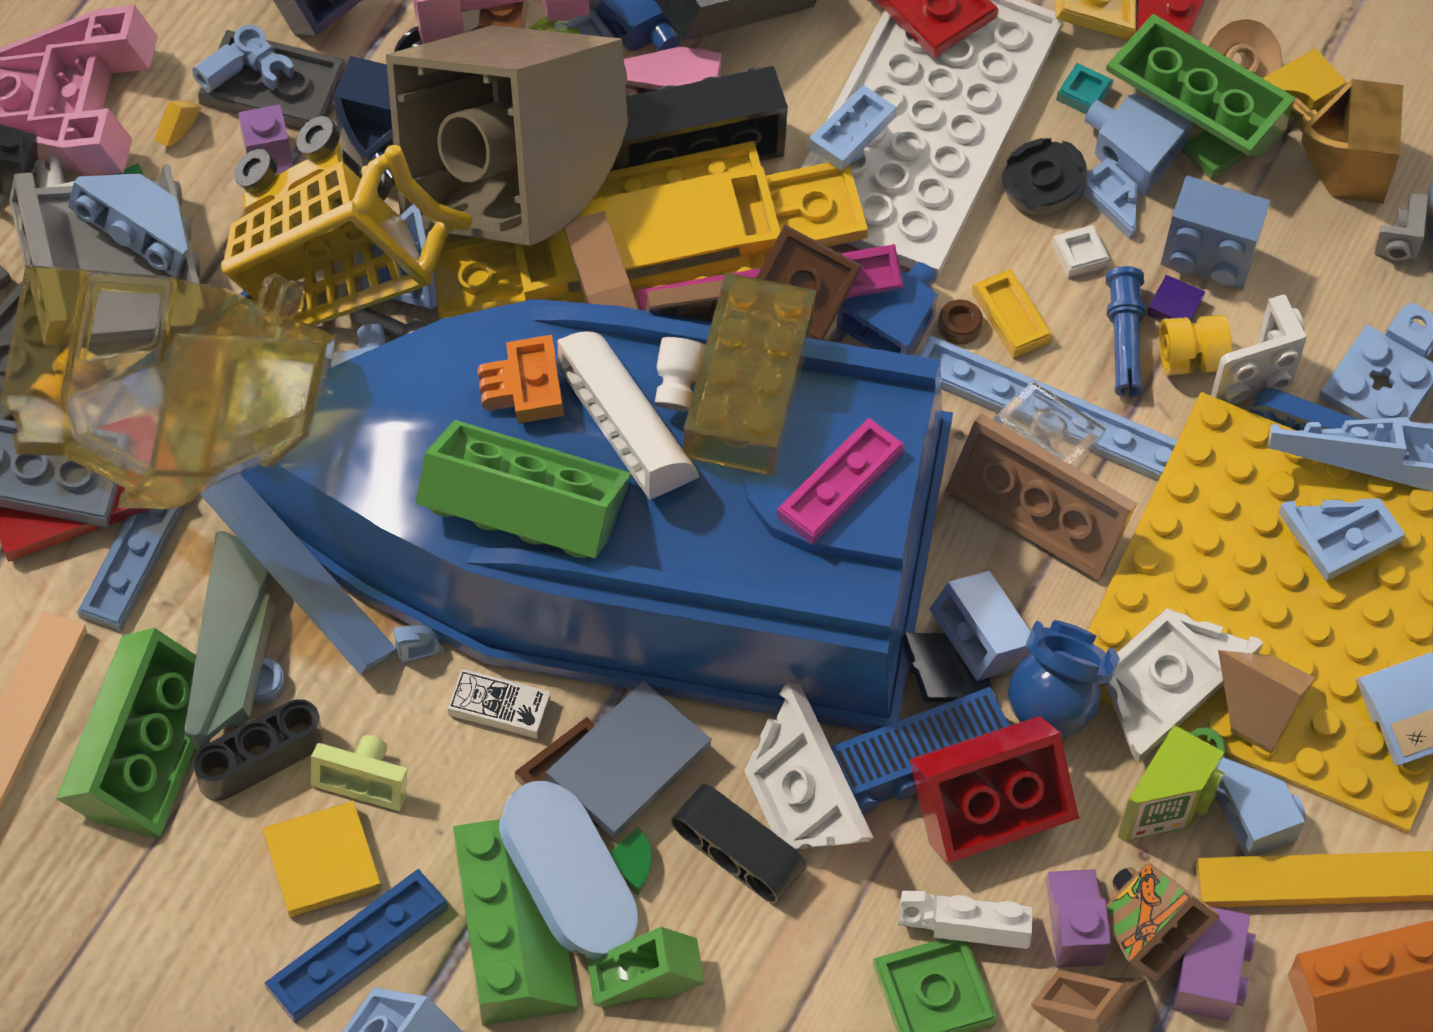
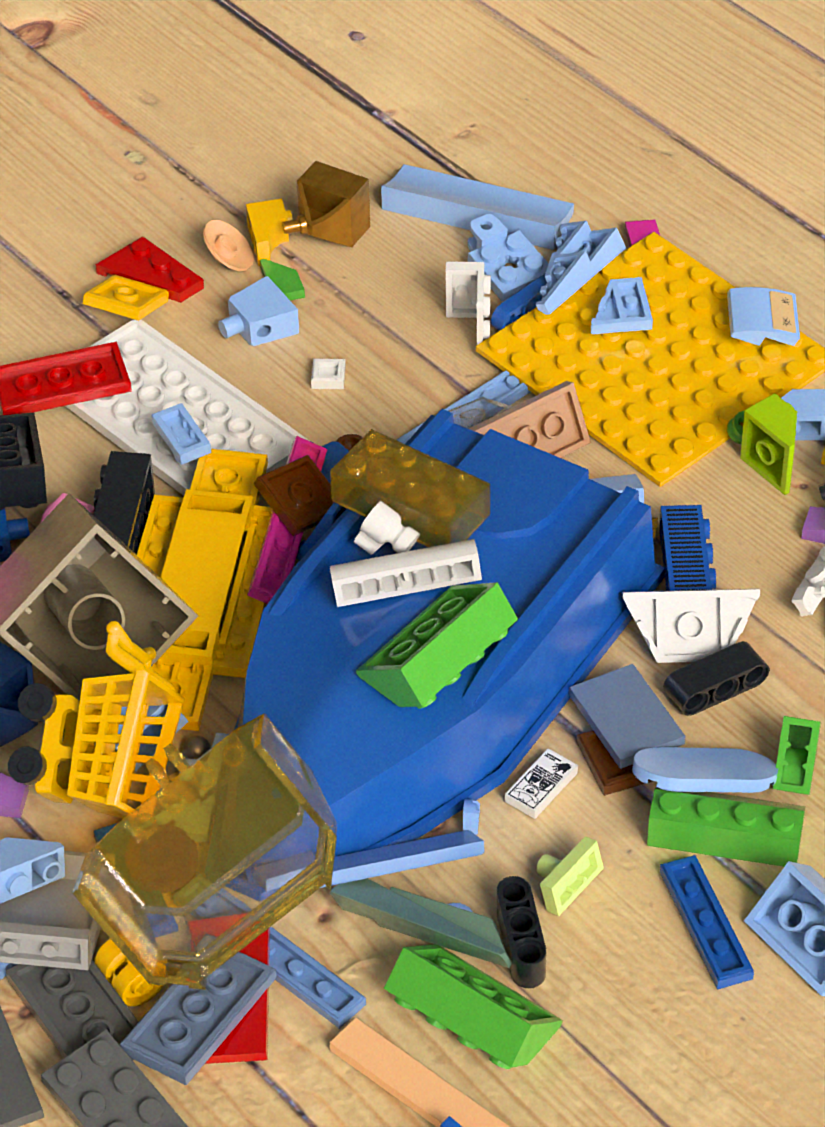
camera: 65 degrees left, 15 degrees down
(321, 859) = (626, 923): yellow tile -> none
(524, 380) = (345, 618): orange hinge -> none
(598, 261) = (230, 597): medium nougat slope -> none
(634, 860) = (703, 738): green tile -> none
(688, 301) = (304, 534): medium nougat tile -> none
(840, 481) = (514, 479): dark pink tile -> none
(994, 789) = (741, 524): red brick -> none
(1012, 313) = (358, 421): yellow tile -> none
(1045, 176) = (261, 369): black tile -> none
(1061, 677) = (674, 468): blue tile -> none
(1084, 88) = (198, 332): teal tile -> none
(1113, 195) = (292, 344): light blue tile -> none
(1126, 313) = (394, 364): blue pin -> none
(1168, 676) = (689, 421): white wing -> none
(1175, 300) = (396, 340): dark purple tile -> none
(1193, 345) = (440, 335): yellow wheel -> none
(1204, 86) = (247, 259): bright green slope -> none
(1214, 232) = (363, 293): medium blue brick -> none
(1261, 695) = (730, 380): medium nougat slope -> none
(1406, 237) = (404, 213): light grey bracket -> none

